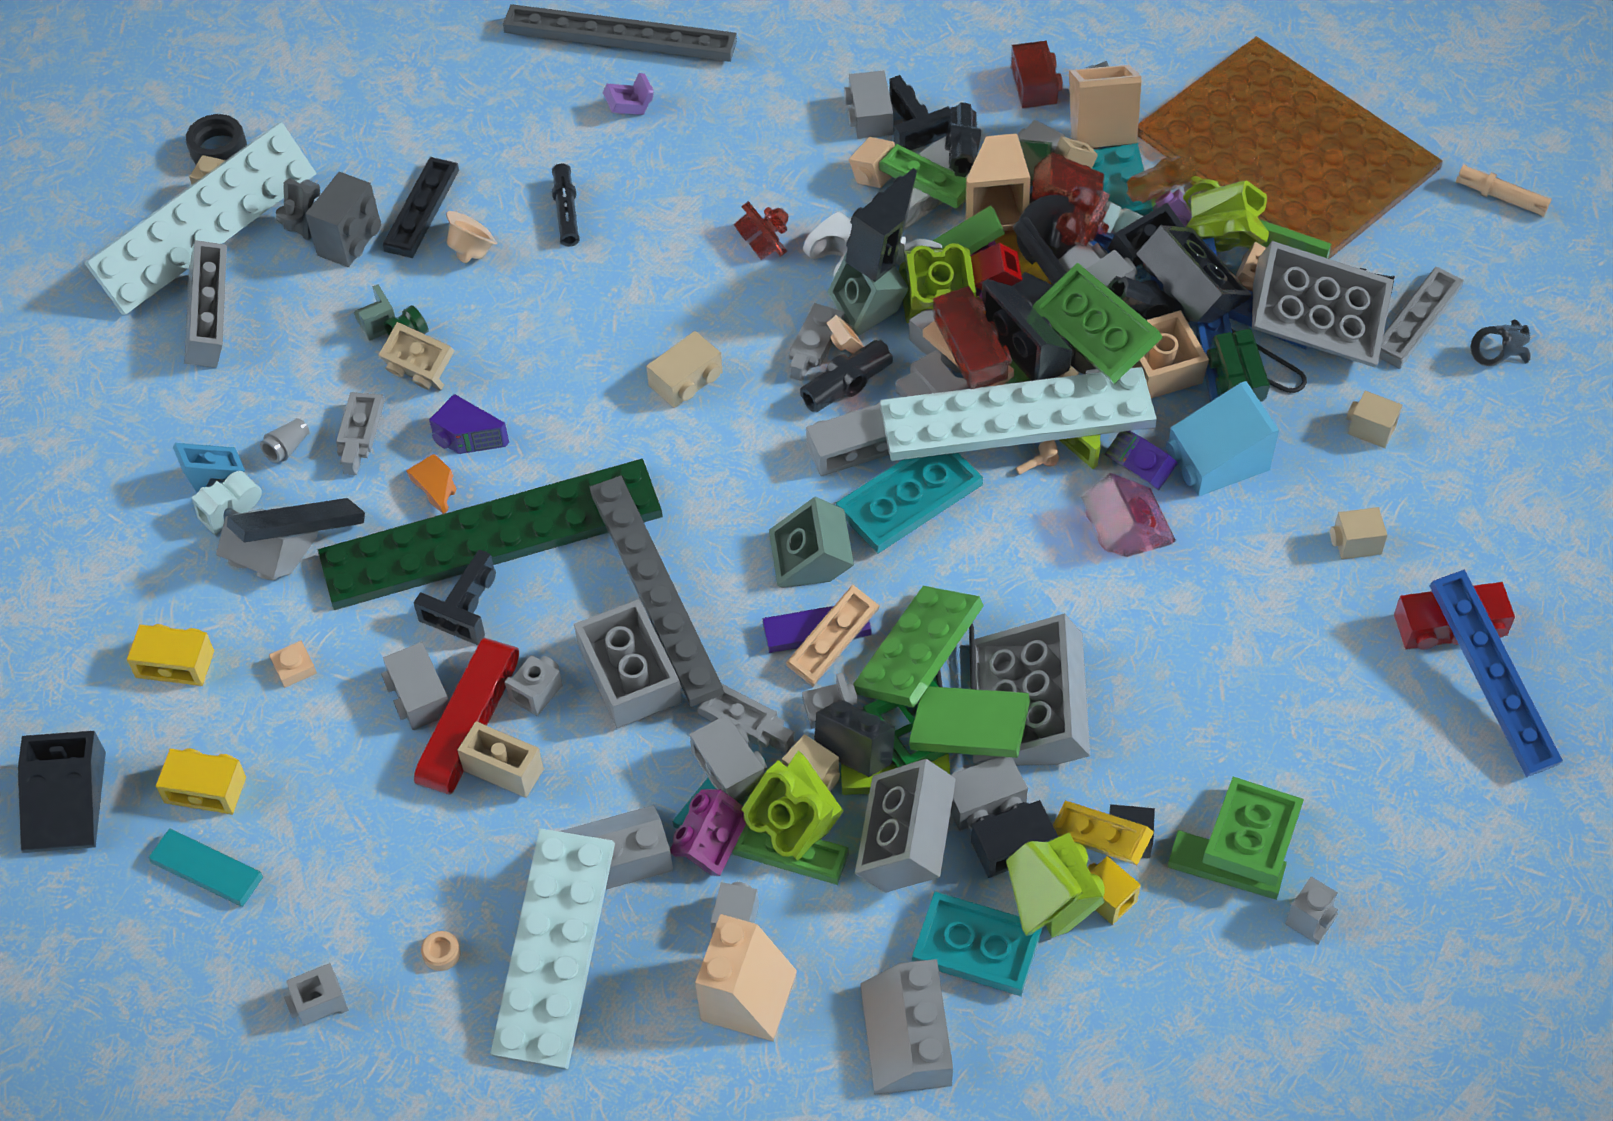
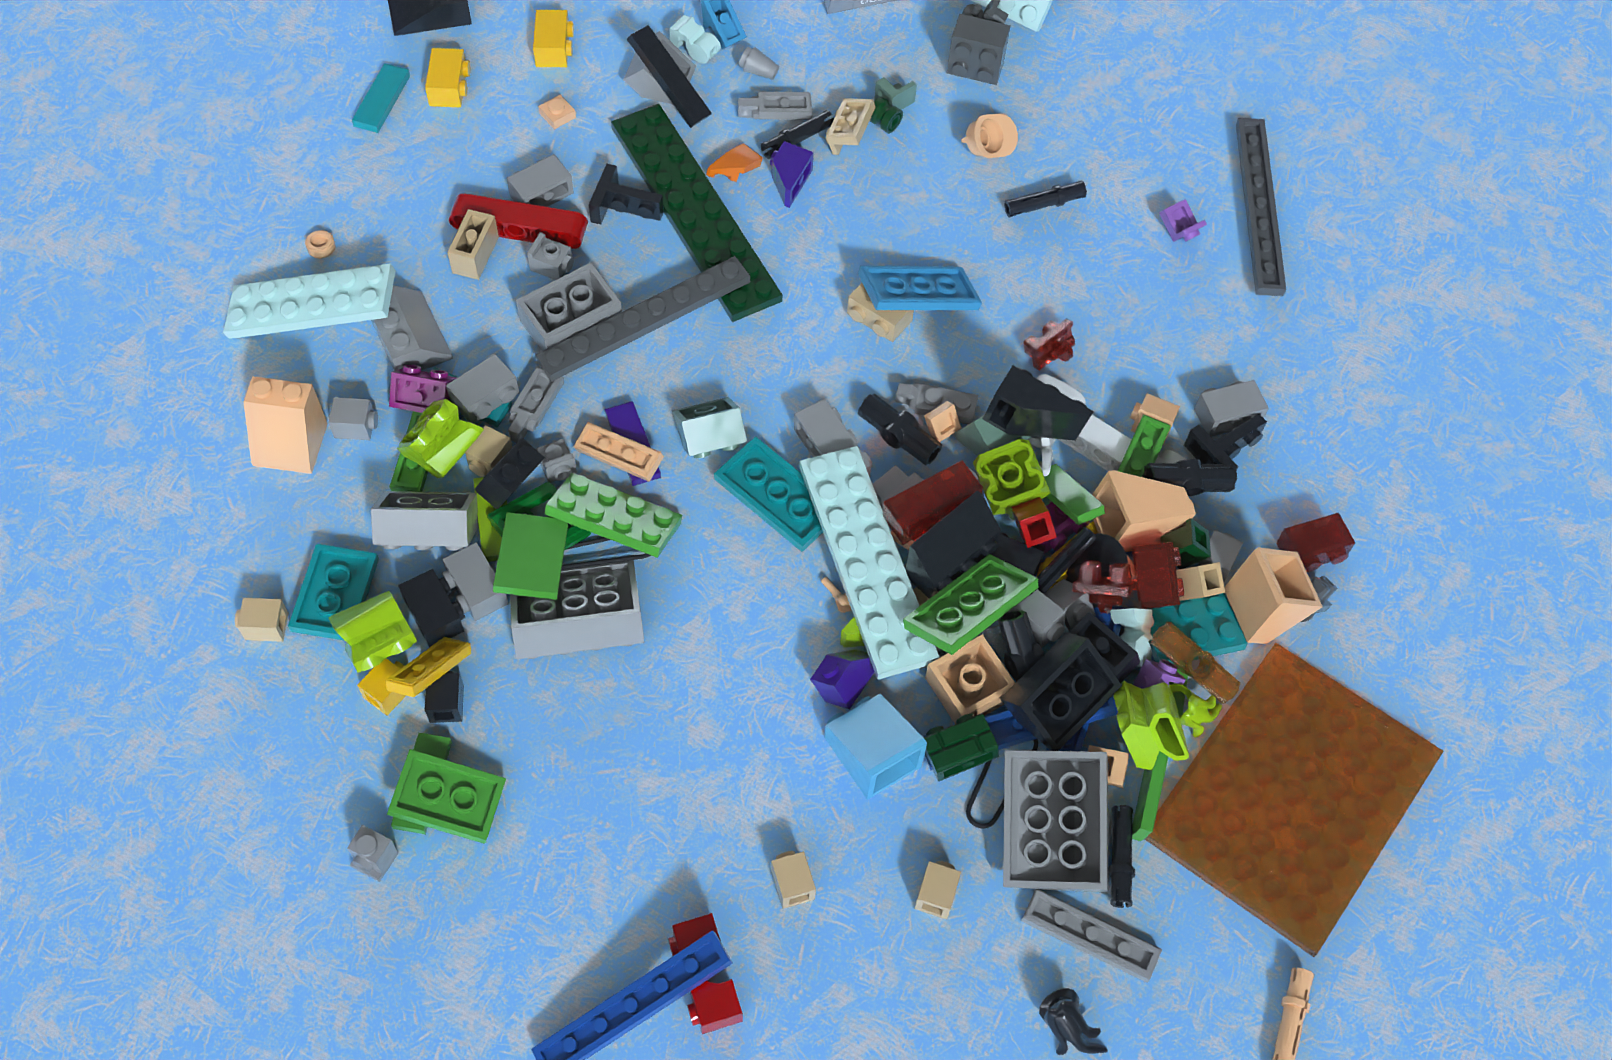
camera: 75 degrees right, 5 degrees up
(315, 995) = (276, 176): light grey brick -> none
(412, 424) = (798, 133): none -> black pin
(421, 207) = (1020, 105): black tile -> none
(673, 324) = (919, 288): none -> dark azure tile
(907, 1028) = (255, 554): light grey slope -> none
(1007, 1020) = (262, 619): none -> tan brick
(1126, 516) = (778, 671): clear pink slope -> none

